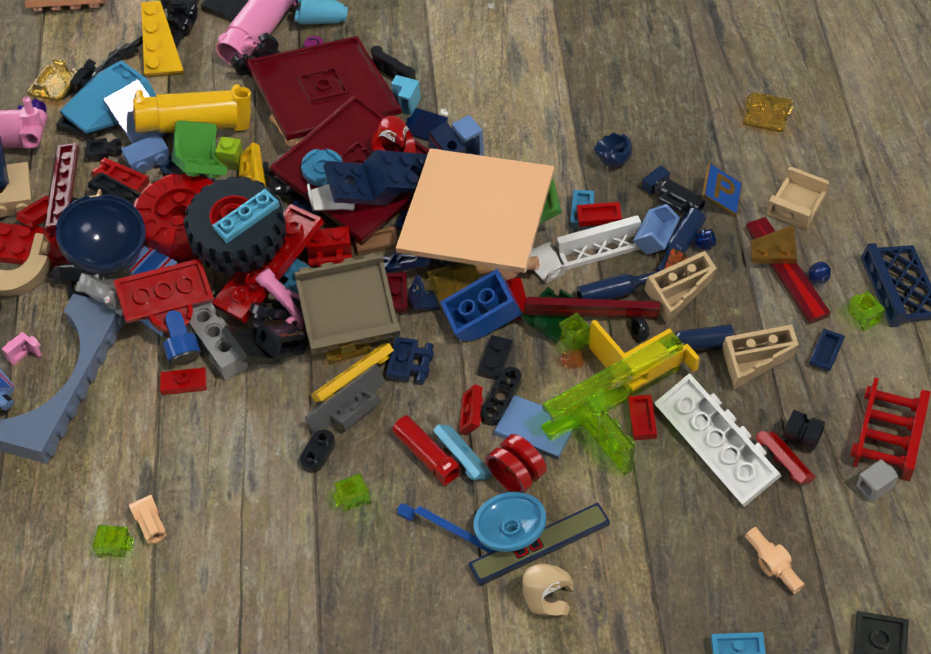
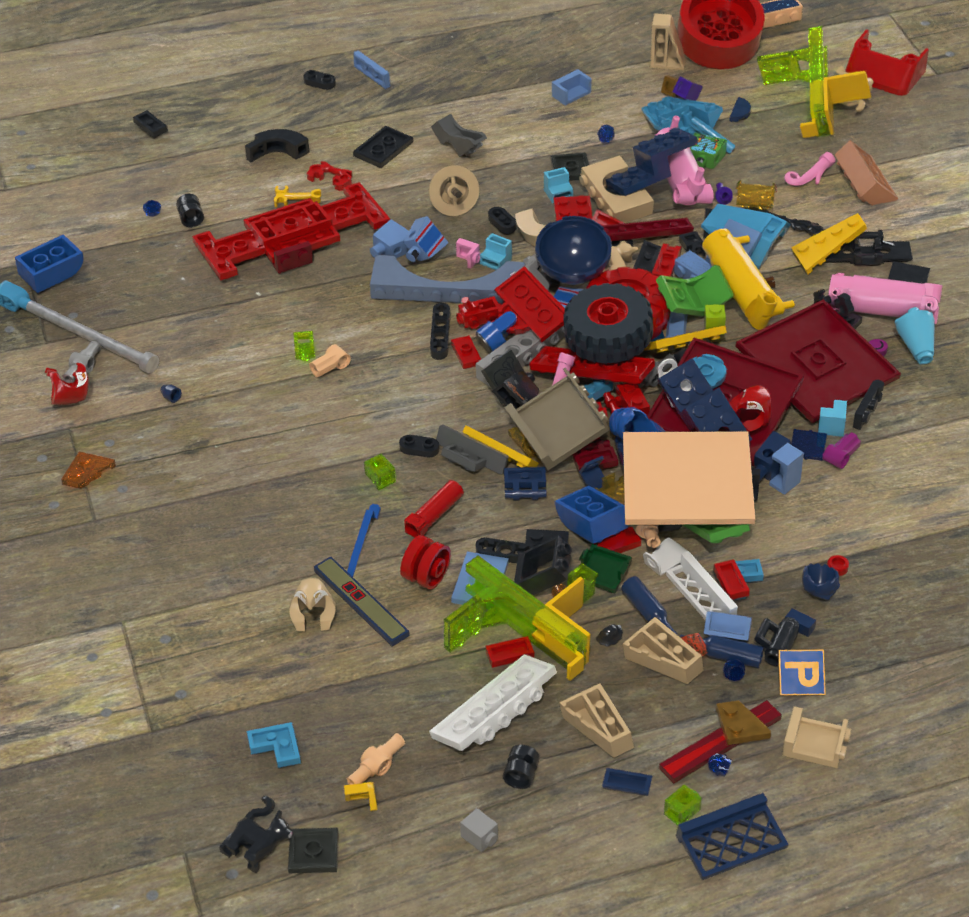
camera: 75 degrees right, 10 degrees down
(28, 19) = (817, 171): none -> bright pink plant
(36, 321) = (497, 252): none -> medium azure piece
(82, 76) = (767, 207): black plate -> none
(129, 354) = (477, 312): none -> red brick
(137, 402) = (440, 331): none -> black beam
(246, 216) = (606, 318): medium azure tile -> none
(264, 310) = (542, 375): black plate -> none
(375, 240) = (631, 420): none -> blue piece
(449, 102) = (840, 452): none -> magenta piece
(462, 452) = (444, 526): medium azure tile -> none
(470, 409) = (473, 532): red plate -> none
(510, 521) = (369, 569): dark azure dish -> none
(545, 381) = (528, 562): none -> black window
(588, 138) = (840, 564): none -> red tile
(591, 307) = (612, 585): dark red tile -> none
(706, 337) = (607, 676): dark blue piece -> none
(767, 112) = (930, 701): clear yellow piece -> none
(785, 457) = (487, 757): red plate -> none
(815, 579) = (361, 791): none -> yellow tile
(908, 443) = (542, 857): red fence -> none

